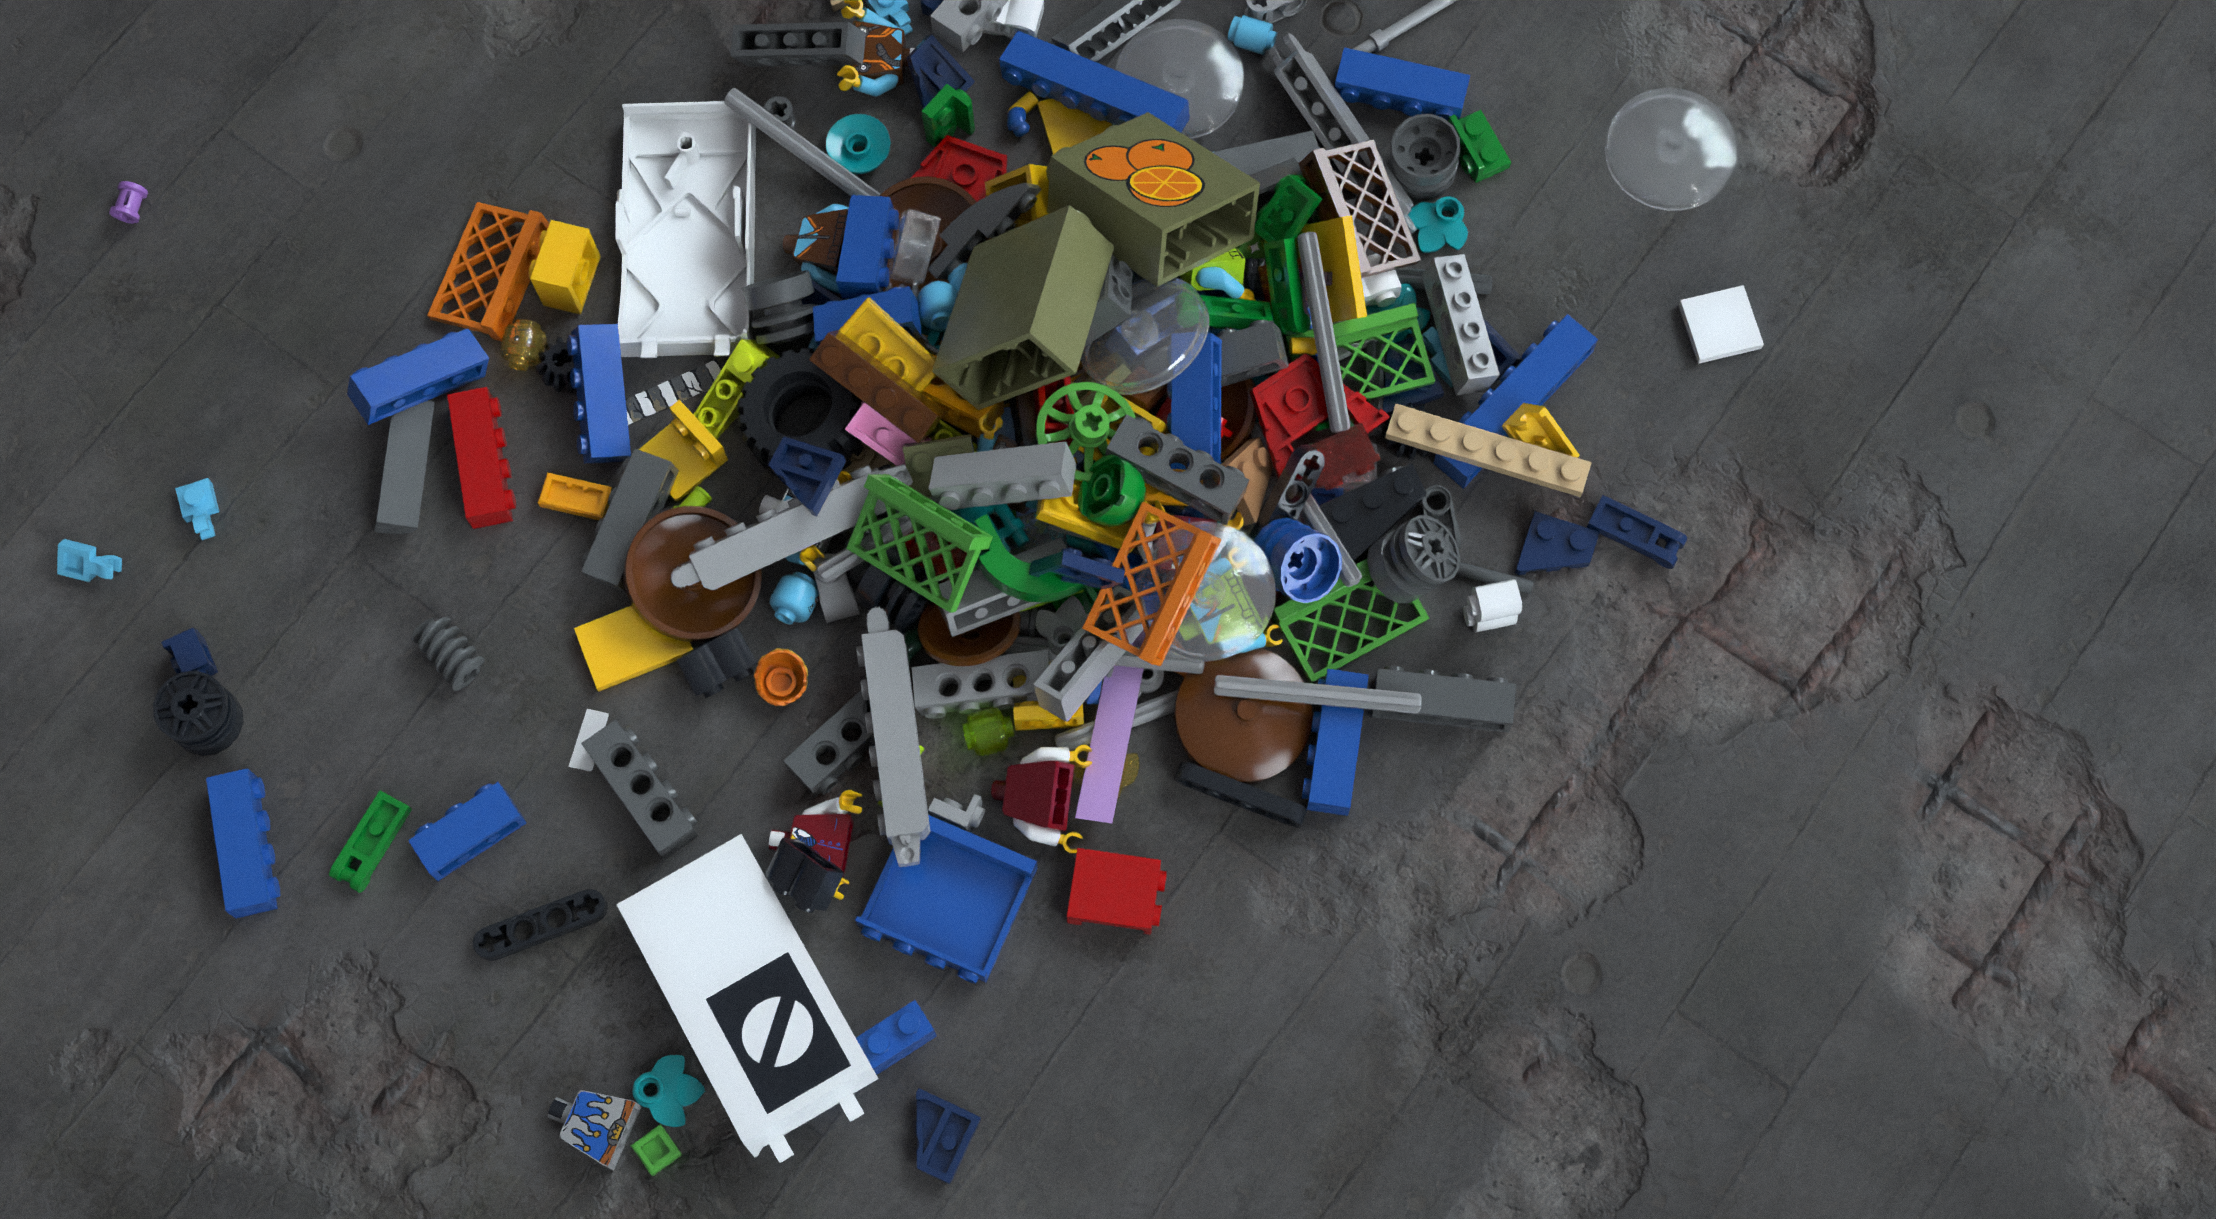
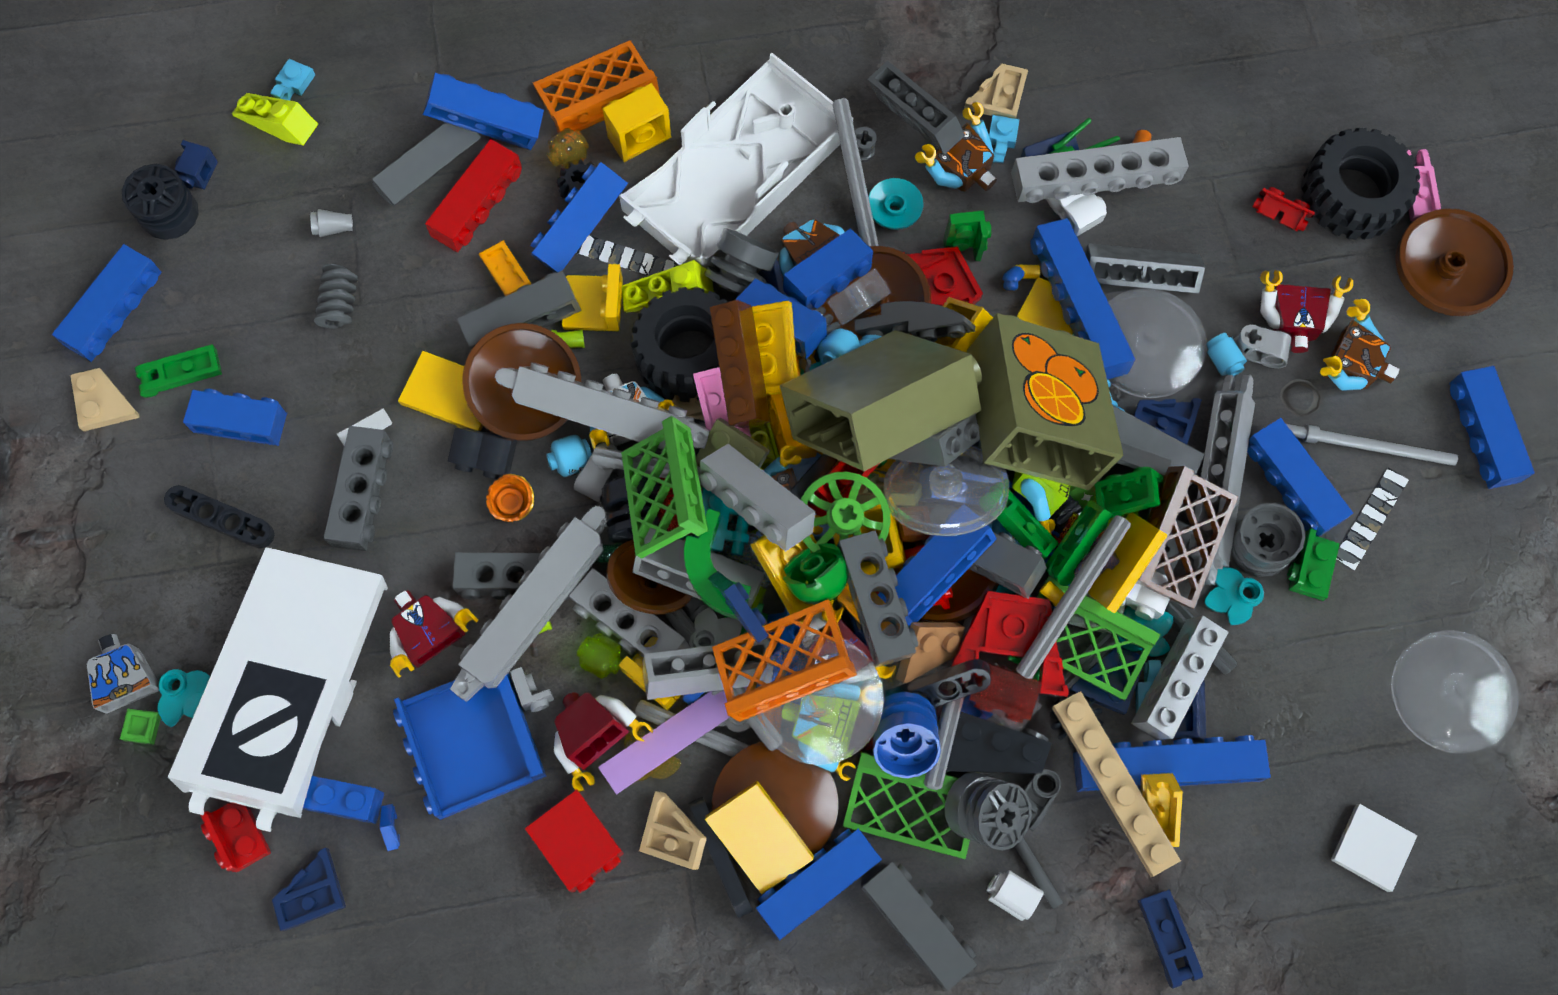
camera: 40 degrees right, 0 degrees up
(81, 563) = (194, 55): medium azure plate -> none
(220, 549) = (277, 117): none -> neon yellow slope
(324, 930) = (99, 401): none -> tan wing
(370, 597) = (329, 223): none -> light grey cone
(803, 875) = (386, 639): black brick -> none
(807, 471) = (641, 379): dark blue wing -> none
(831, 1151) = (234, 836): none -> red bracket
(934, 68) = (992, 196): dark blue wing -> none
(953, 1024) = (387, 827): none -> blue tile
(1186, 812) = (672, 834): none -> tan wing
(1254, 124) = (1169, 416): none -> dark blue wing
(1258, 746) = (759, 837): none -> yellow tile
(1317, 694) = (833, 841): light grey axle -> none
(1486, 68) = (1371, 518): none -> sticker
(1555, 545) = (1103, 892): dark blue wing -> none

